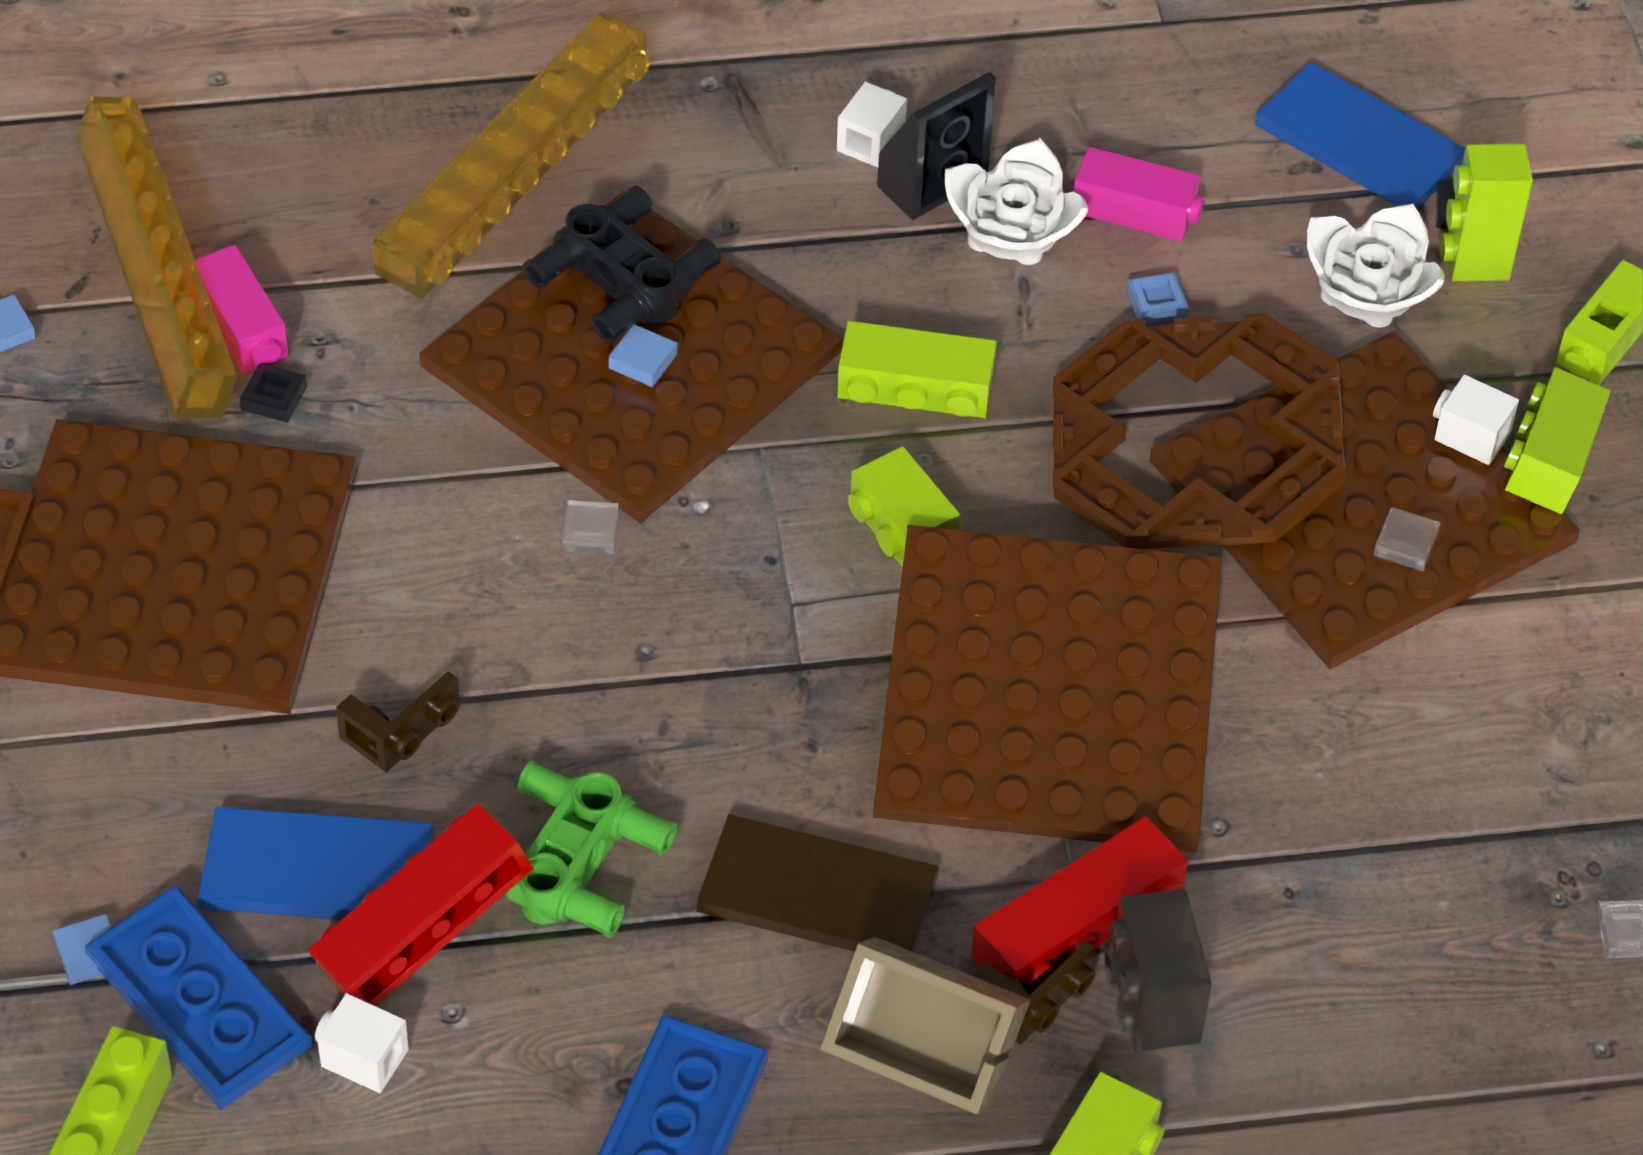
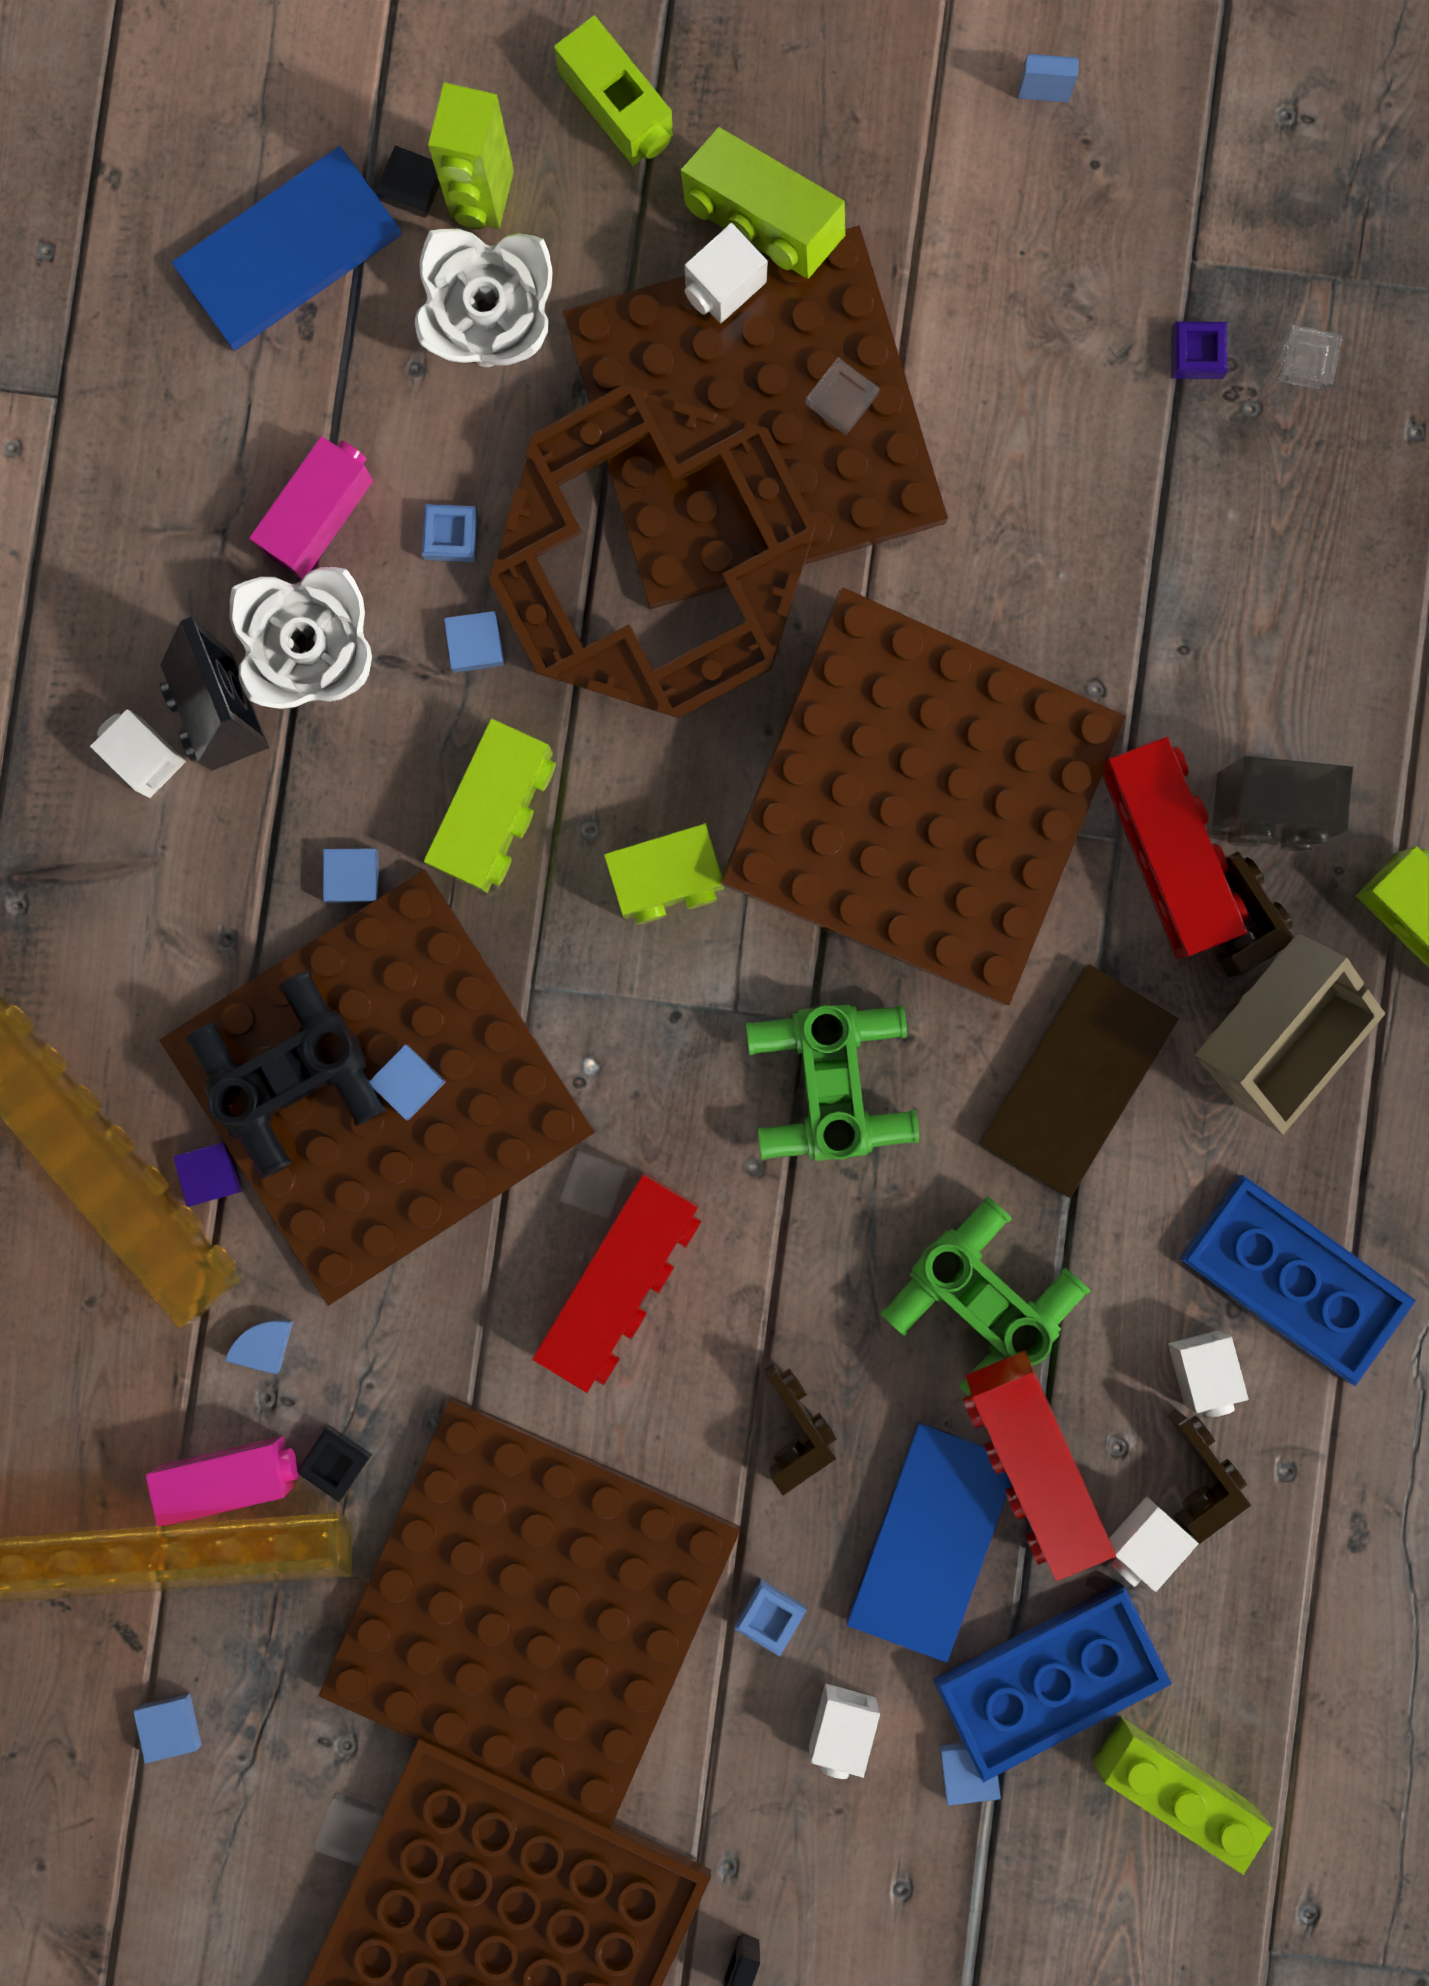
camera: 70 degrees left, 35 degrees up
(110, 822) = (843, 1732): none -> white brick
(207, 751) = (770, 1617): none -> medium blue tile
(369, 319) = (262, 1346): none -> medium blue tile
(429, 1100) = (1208, 1508): none -> dark brown bracket
(504, 553) = (616, 1282): none -> red brick
(510, 249) = (207, 1174): none -> dark purple tile
(553, 1055) = (1208, 1373): none -> white brick
(748, 679) = (832, 1082): none -> bright green piece
(818, 292) = (350, 875): none -> medium blue tile
(1064, 334) = (474, 641): none -> medium blue tile
(1593, 834) = (1199, 350): none -> dark purple tile

